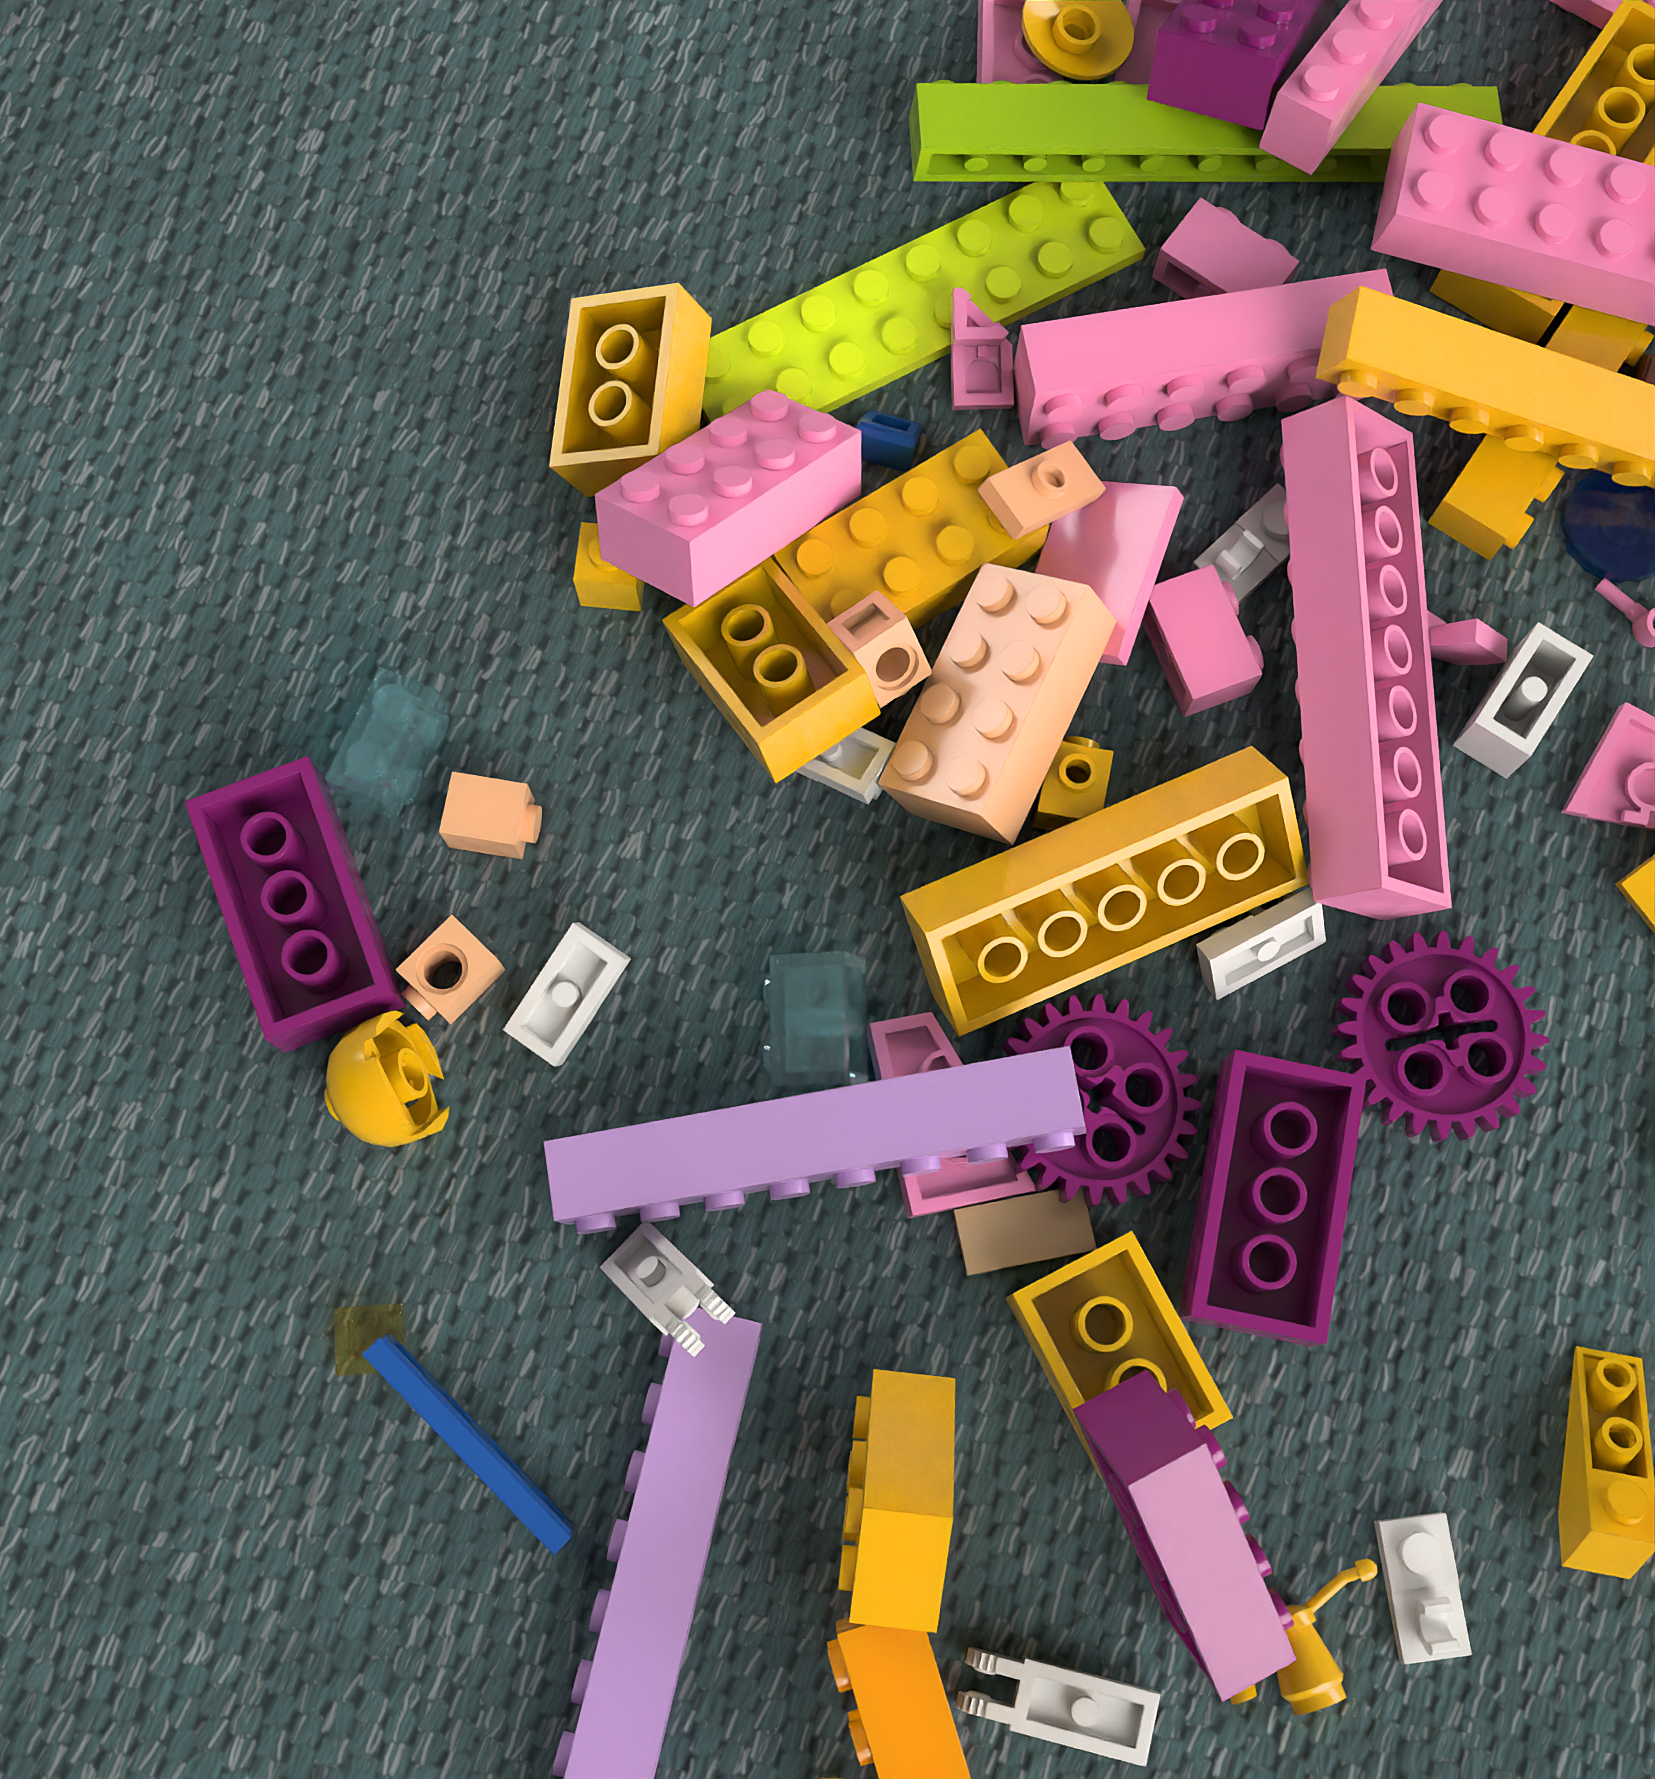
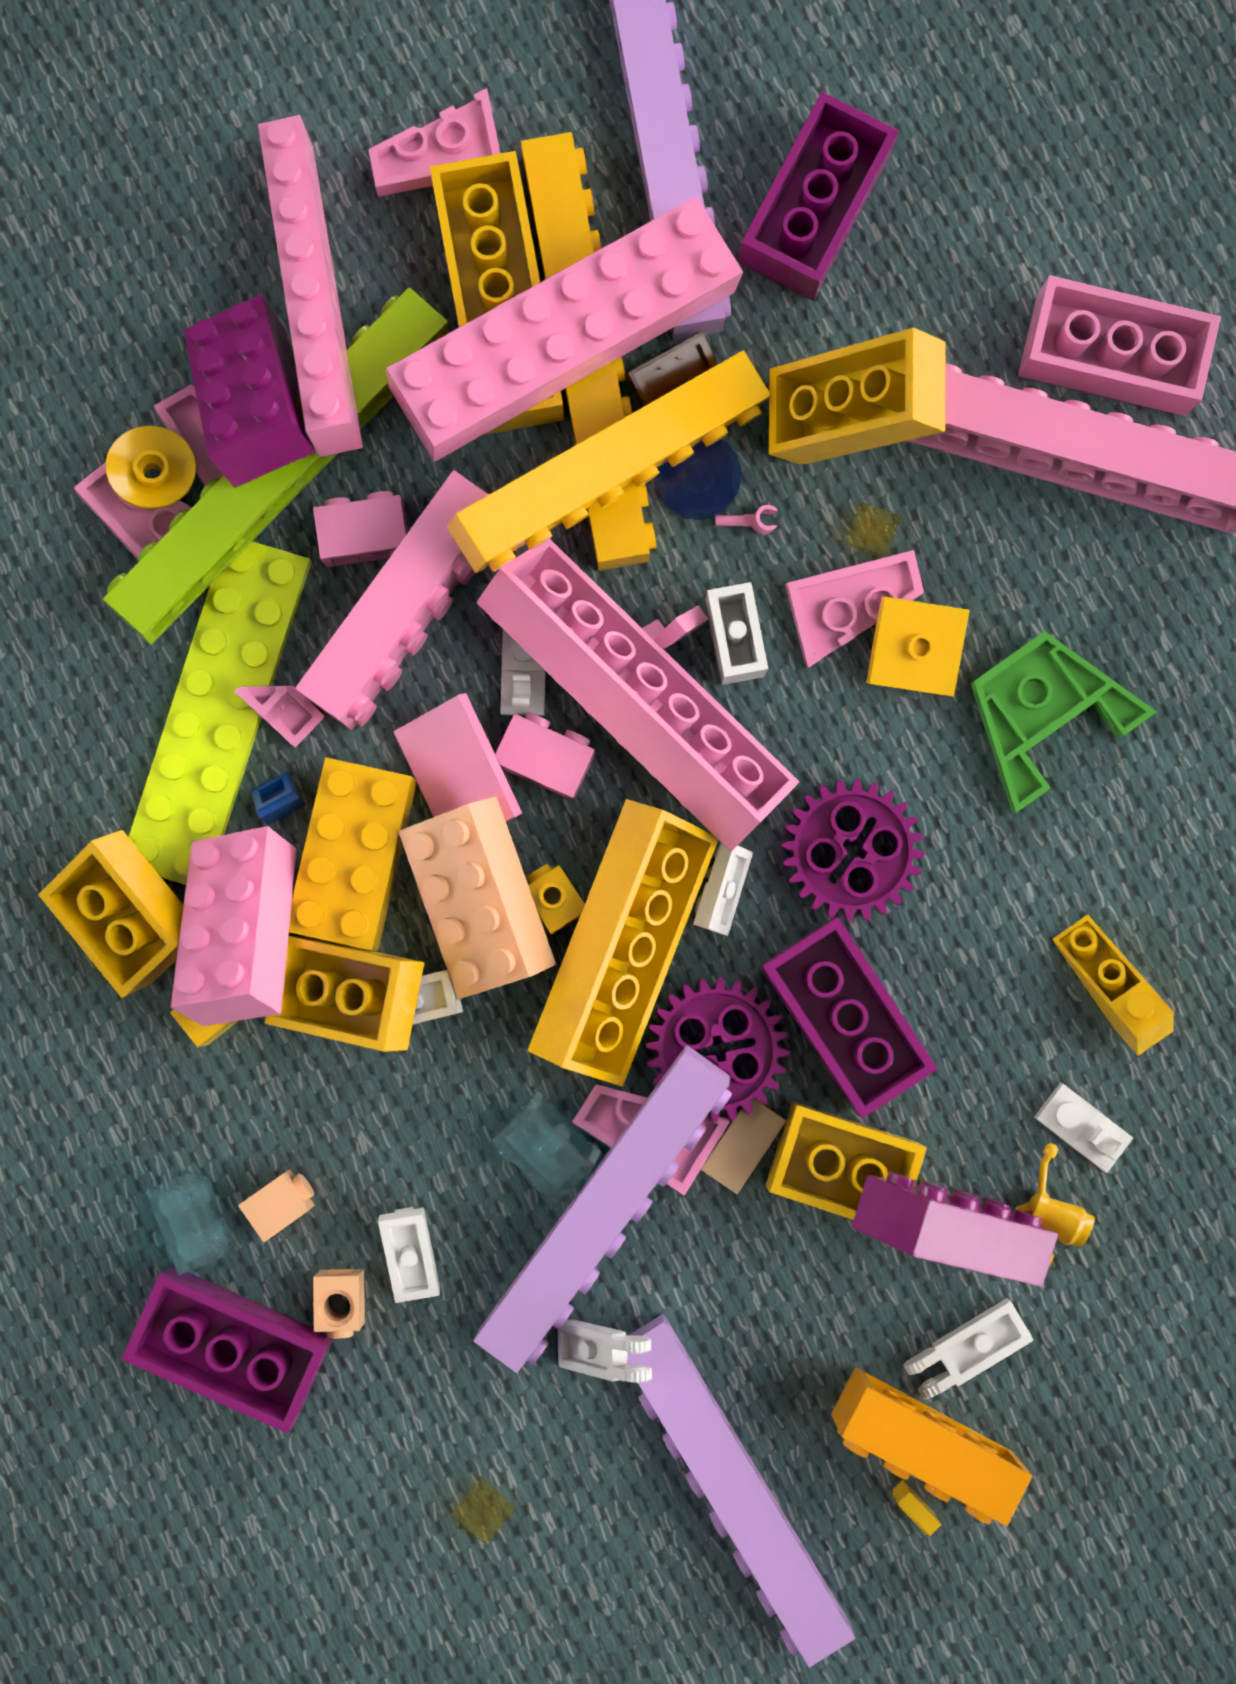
camera: 45 degrees left, 10 degrees up
(376, 1073) = (365, 1389): yellow cylinder -> none
(470, 1442) = (581, 1512): blue tile -> none
(883, 645) = (391, 933): light nougat brick -> none
(899, 1501) = (811, 1344): yellow brick -> none
(1041, 489) = (390, 763): light nougat plate -> none

